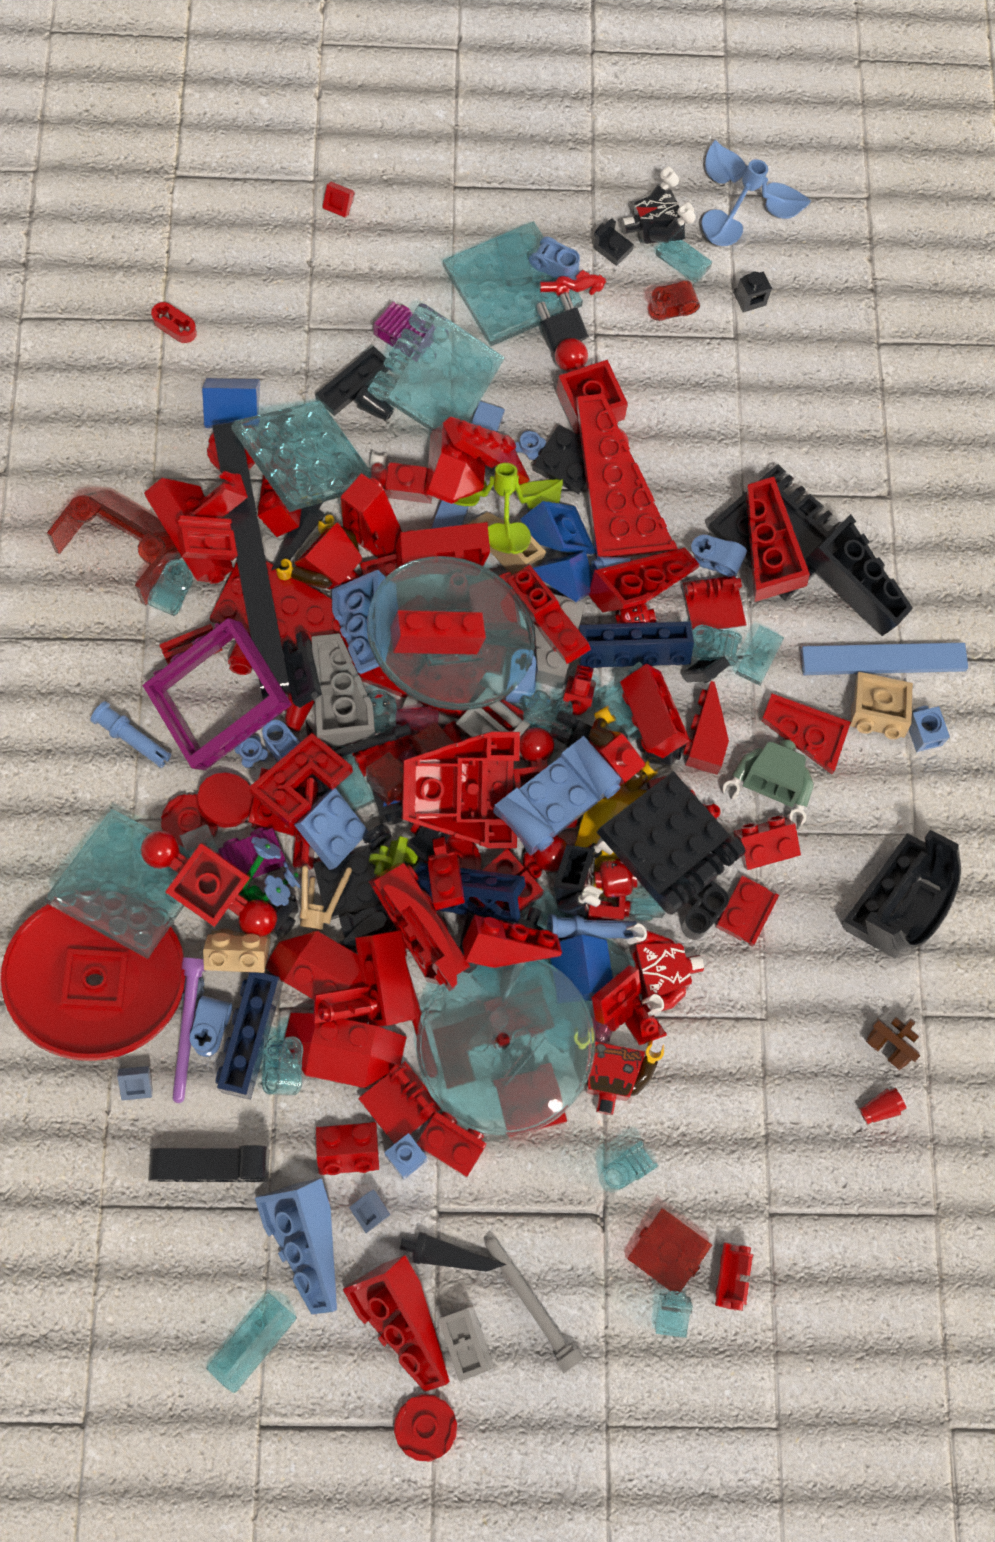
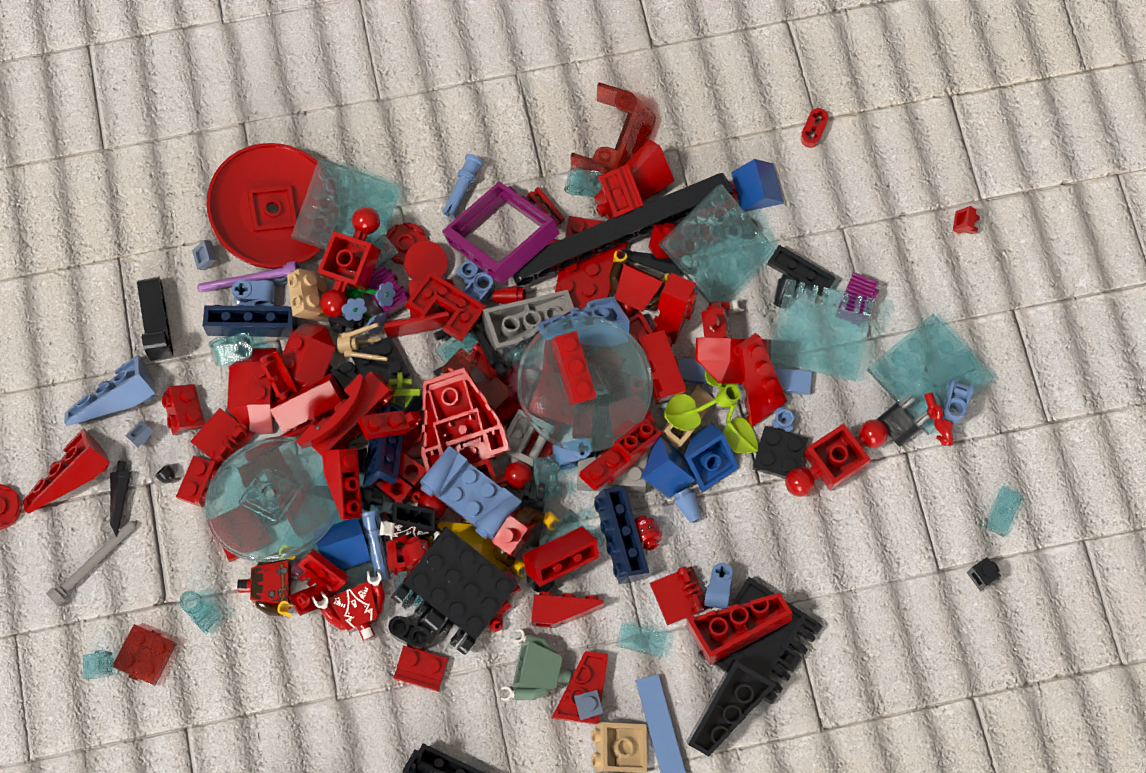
camera: 85 degrees right, 0 degrees up
(221, 499) = (655, 192): red hinge -> none
(251, 1343) = (39, 377): clear light blue slope -> none
(301, 670) = (536, 286): black hinge -> none
(331, 828) = (415, 339): medium blue plate -> none
(377, 837) = (419, 375): black bush -> none
(406, 1156) = (181, 449): medium blue brick -> none
(431, 1186) = (164, 474): none -> black hinge
(466, 1343) = (56, 521): light grey hinge -> none
(580, 690) = (573, 499): red hips -> none
(612, 243) = (997, 447): black bracket -> none
(619, 498) = (746, 498): red wing -> none
(639, 579) = (679, 528): red wedge -> none
(659, 215) = (1033, 477): black torso -> none
(676, 300) = (956, 511): clear red piece -> none
(705, 669) = (612, 594): black plate -> none
(717, 643) = (641, 605): clear light blue piece -> none
(726, 165) = (1111, 533): medium blue plant -> none
(734, 1262) = (135, 703): red hinge -> none
(768, 841) = (480, 673): red bracket -> none
(829, 725) = (588, 705): none -> sand blue plate

